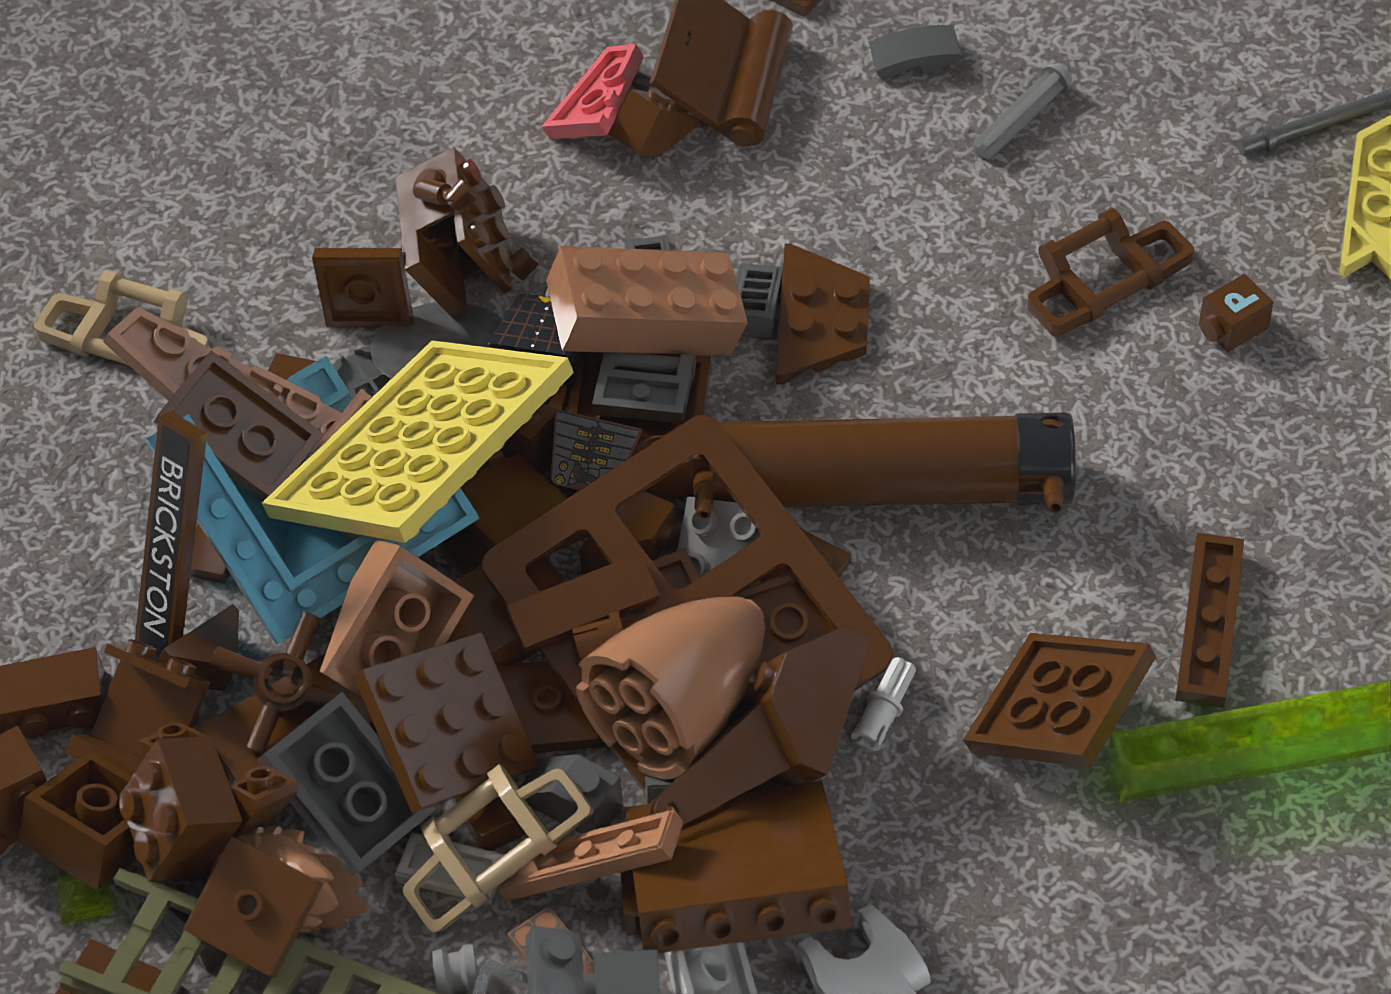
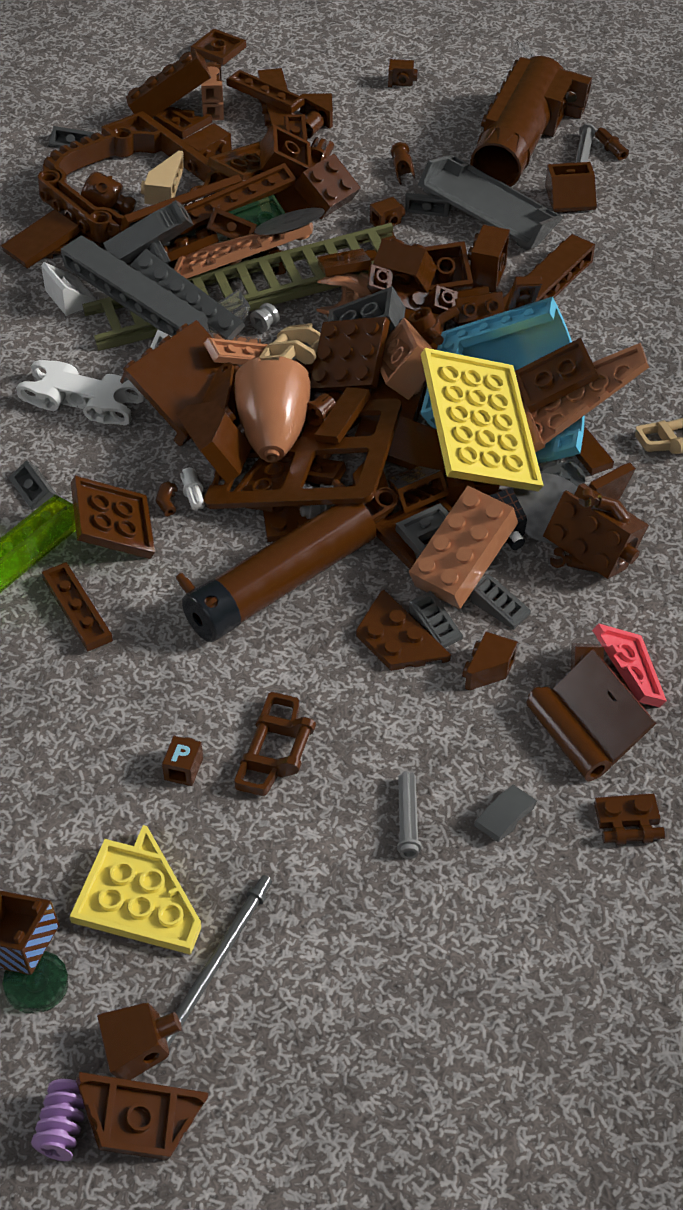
camera: 135 degrees right, 5 degrees down
(752, 200) = (490, 661): none -> reddish brown slope
(934, 725) = (163, 497): none -> reddish brown arm
(1118, 893) = (32, 485): none -> dark grey slope

